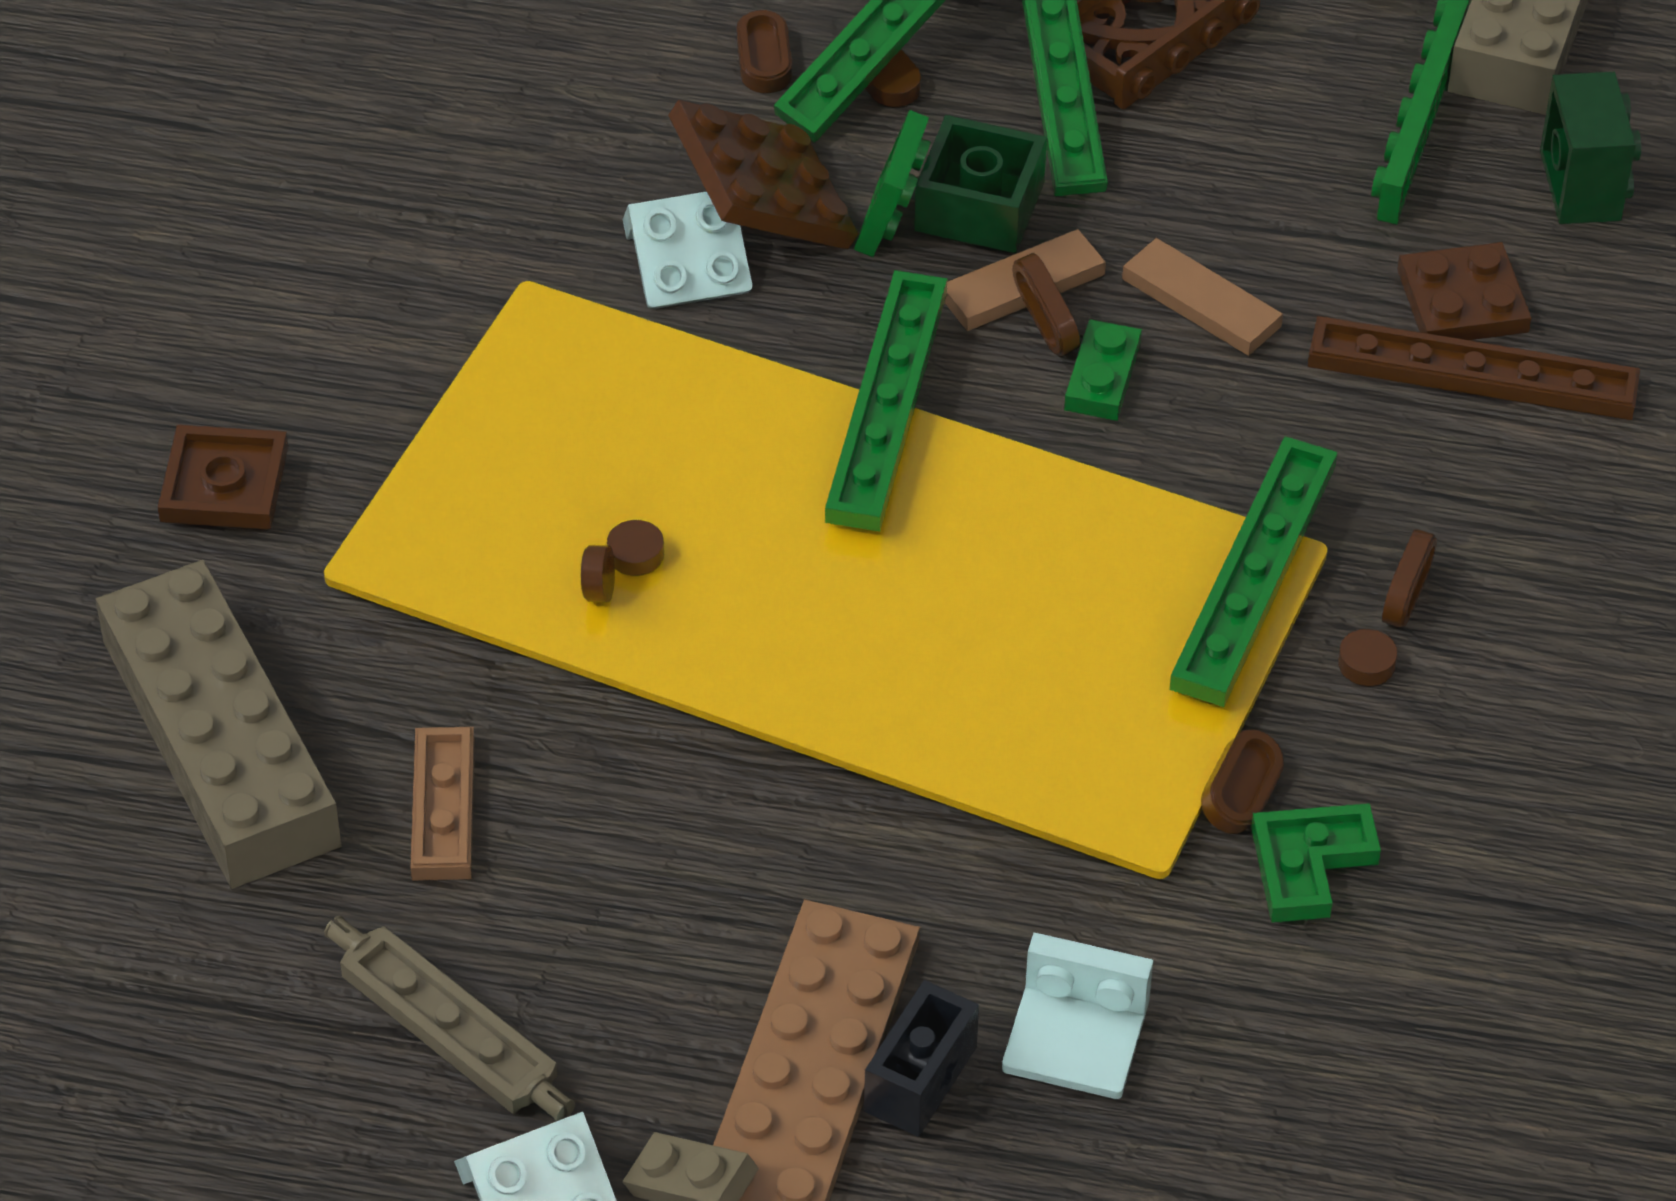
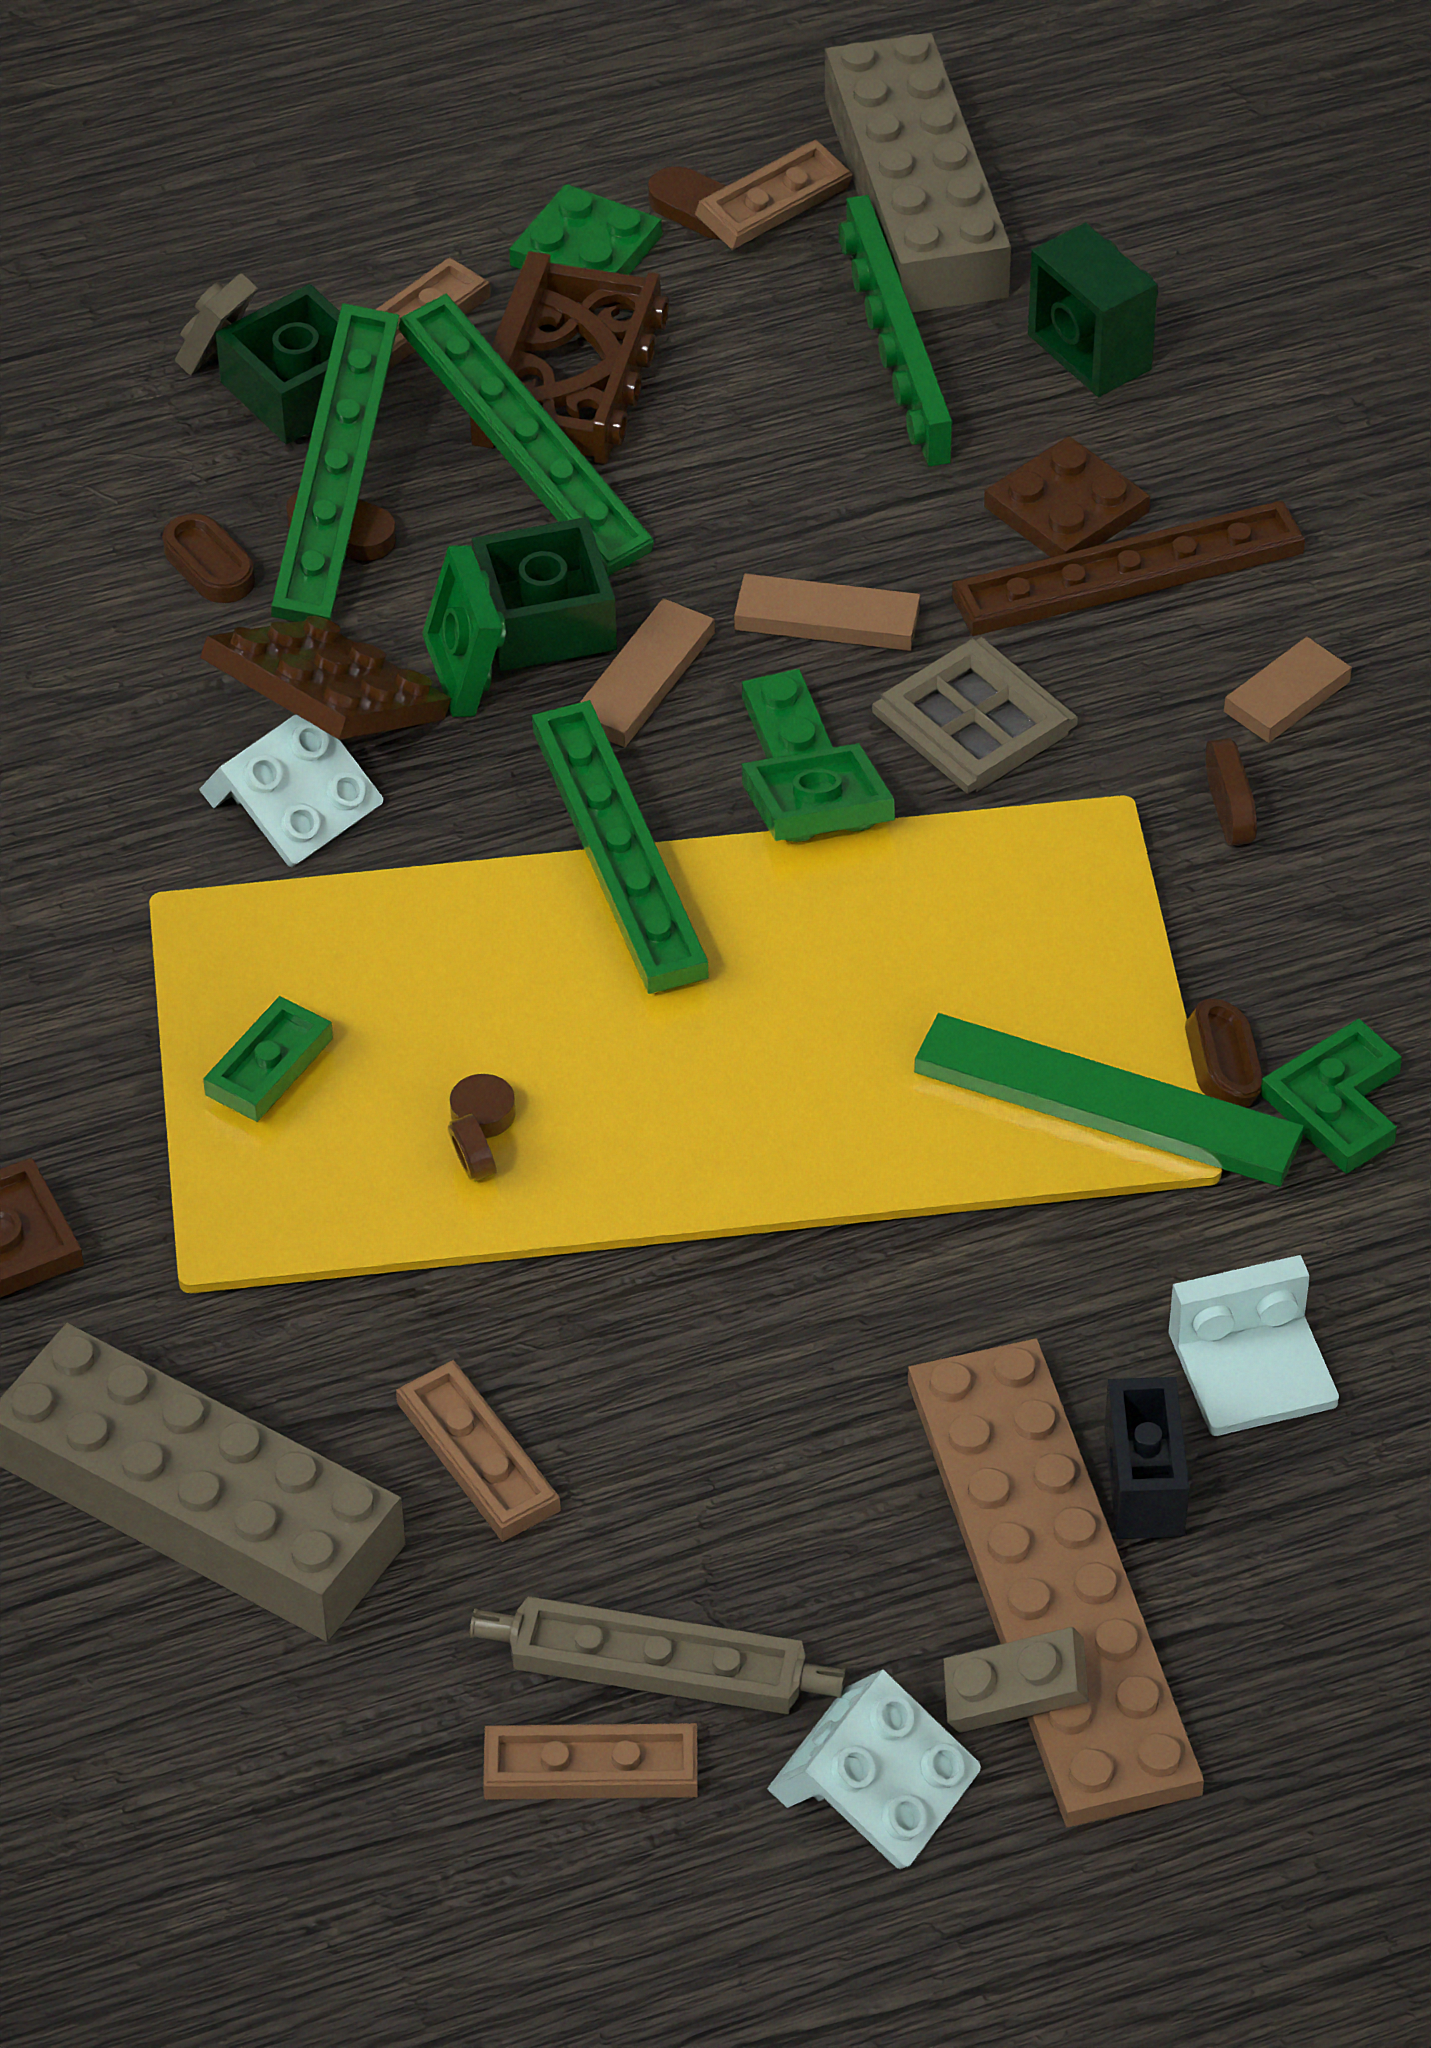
camera: 30 degrees left, 0 degrees up
(344, 1073) = (590, 1761): none -> medium nougat tile
(504, 438) = (268, 1058): none -> green plate
(1045, 304) = (696, 684): reddish brown tile -> none
(1074, 429) = (818, 792): none -> green plate
(1118, 772) = (1109, 1099): none -> green tile
(1242, 419) = (974, 715): none -> dark tan piece
(1253, 572) = (1093, 851): green plate -> none
(1367, 657) = (1243, 885): reddish brown tile -> none
(1527, 520) = (1287, 689): none -> medium nougat tile

